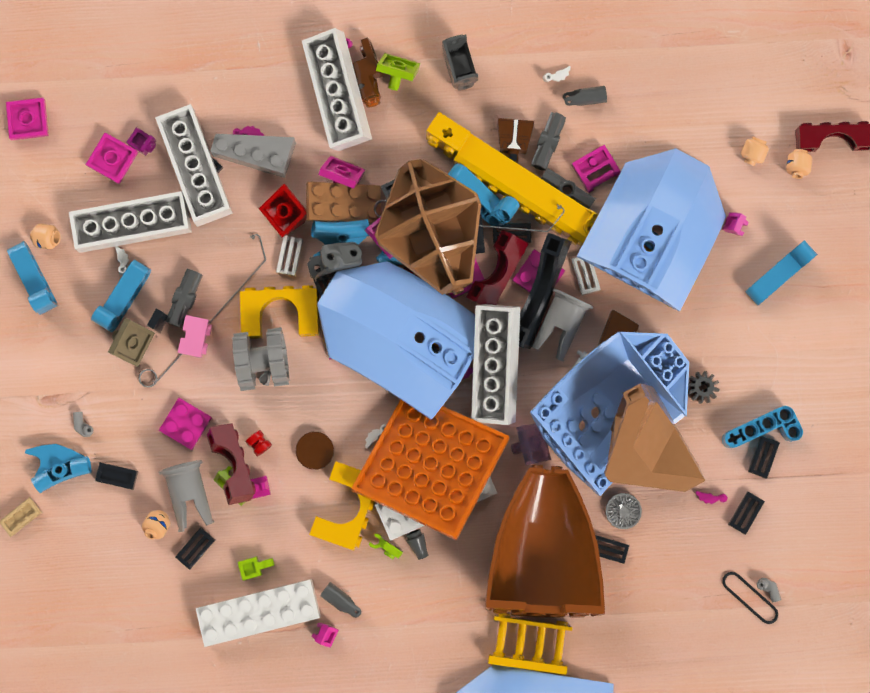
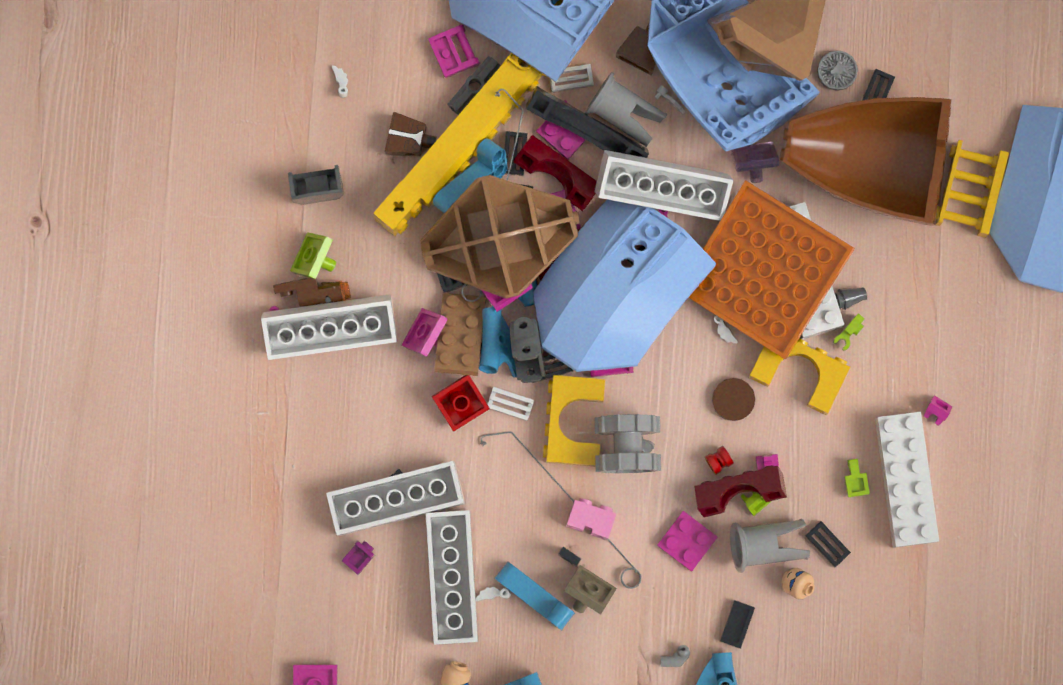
camera: 80 degrees left, 0 degrees up
(112, 158) = (373, 593): dark pink plate -> none
(184, 298) = (545, 527): dark grey piece -> none
(248, 131) = (361, 433): dark pink piece -> none
(261, 153) = (389, 423): light grey wedge -> none
(340, 600) = (902, 388): dark grey piece -> none
(548, 141) = (416, 99): dark grey piece -> none
(586, 96) = (370, 51): dark grey piece -> none

